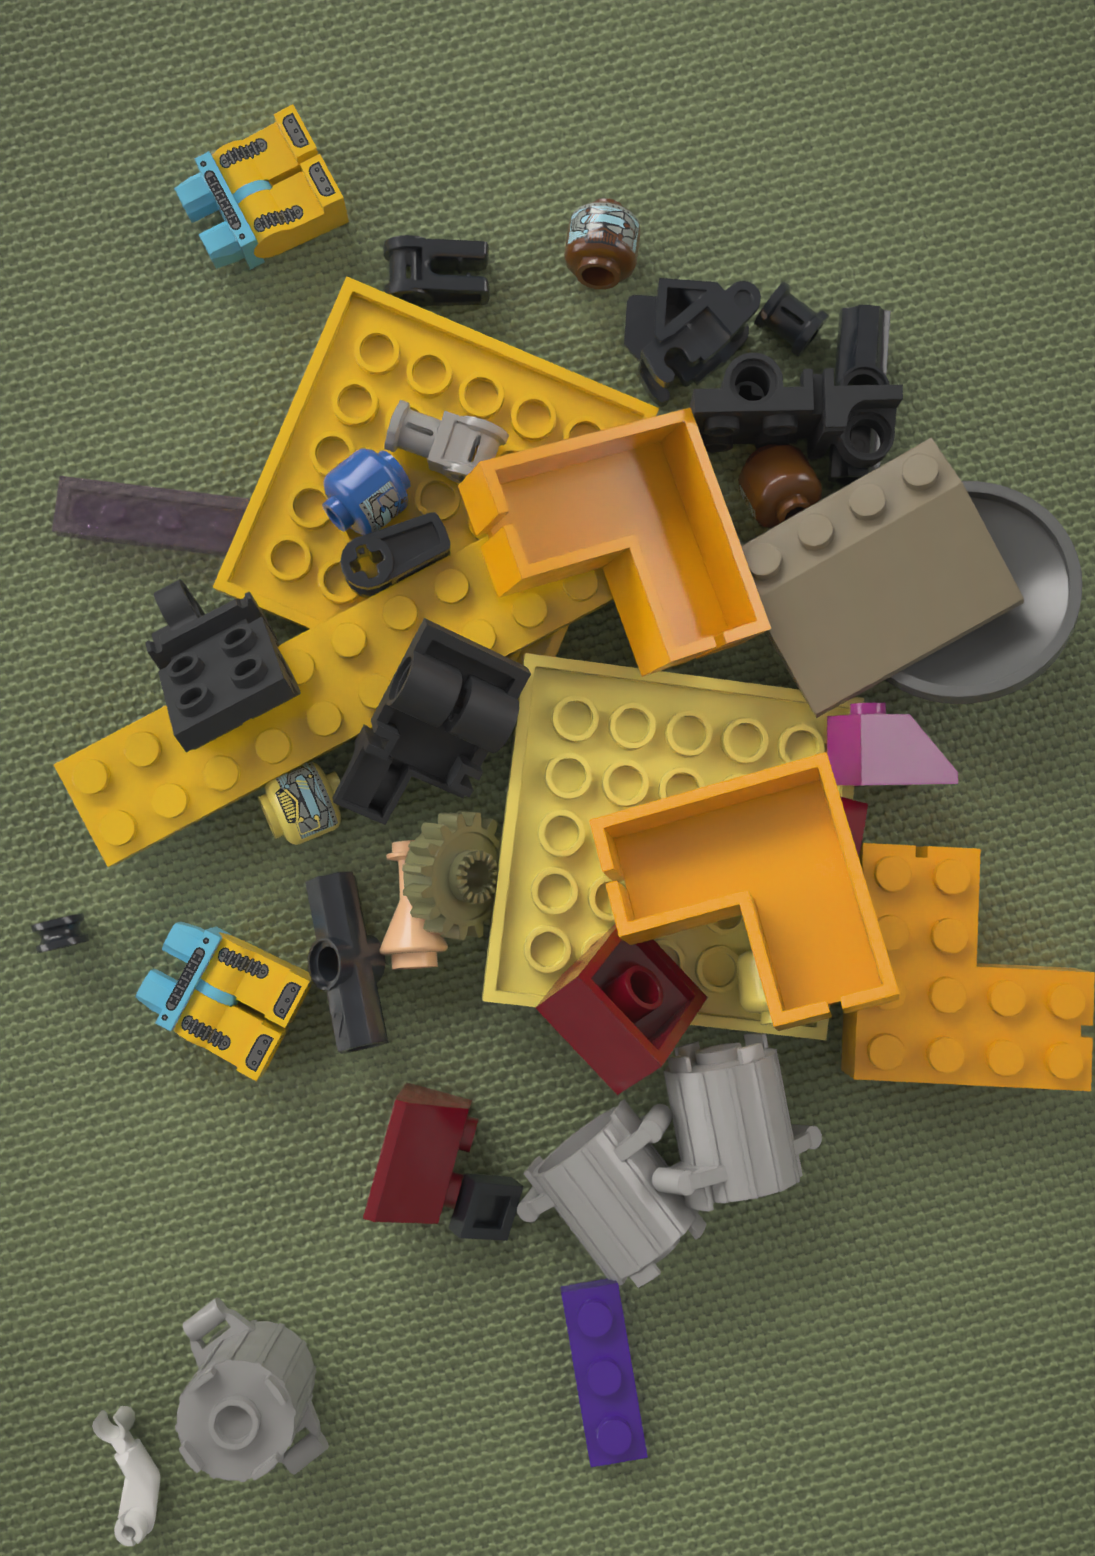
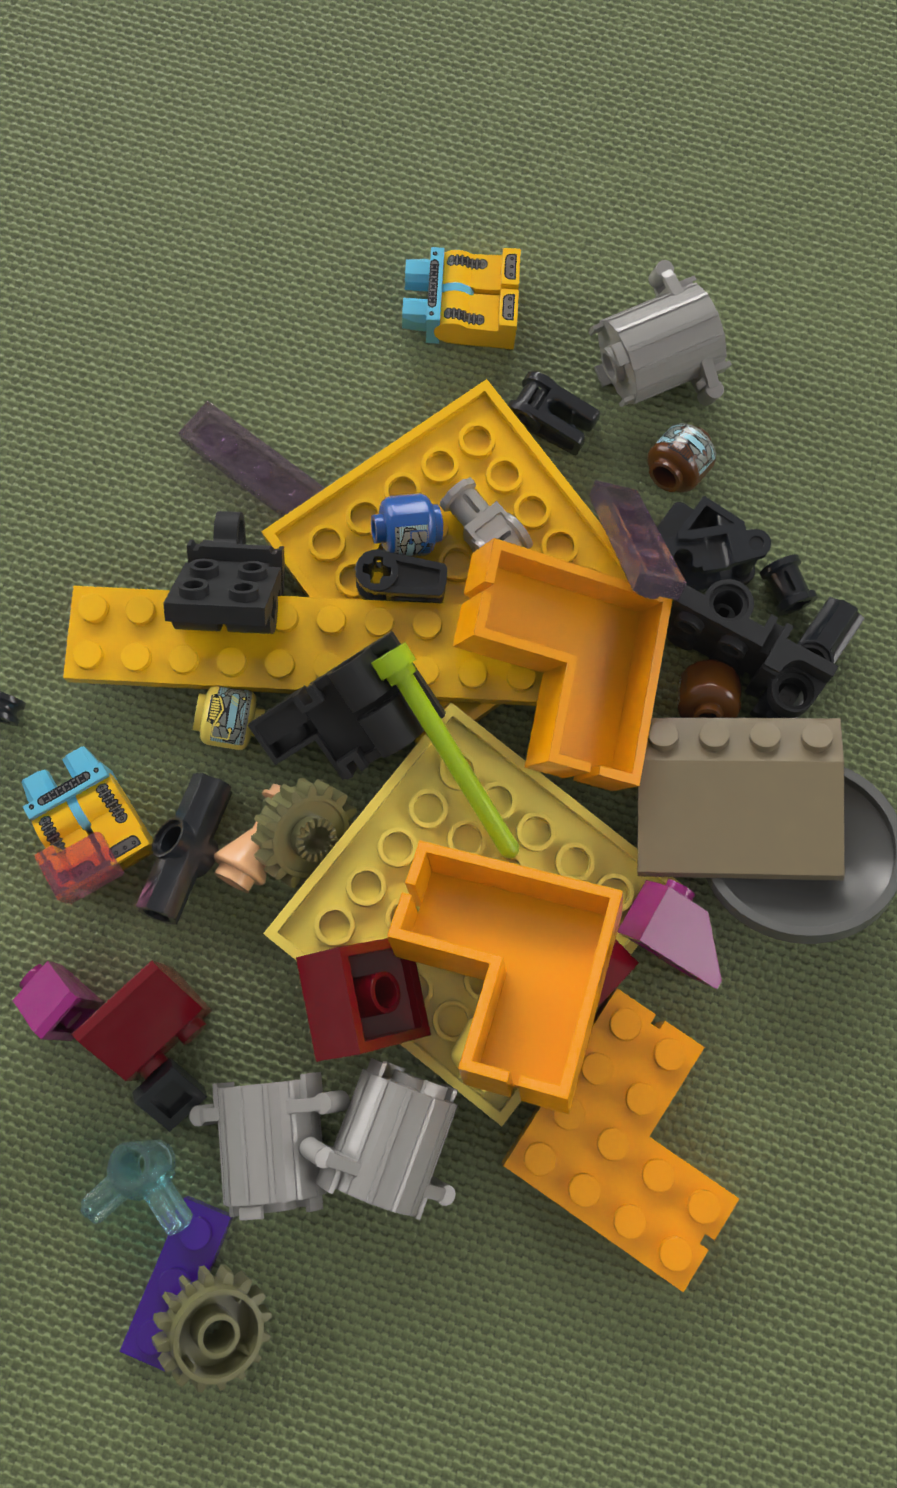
camera: 30 degrees right, 10 degrees down
(256, 1049) = (79, 867): none -> clear pink panel
(315, 1191) = (55, 1001): none -> magenta slope
(458, 656) = (398, 670): none -> lime piece
(499, 1312) = (126, 1182): none -> clear light blue axle
(511, 123) = (664, 342): none -> light grey container
(617, 368) = (637, 542): none -> plate
(664, 1365) = (231, 1347): none -> olive gear

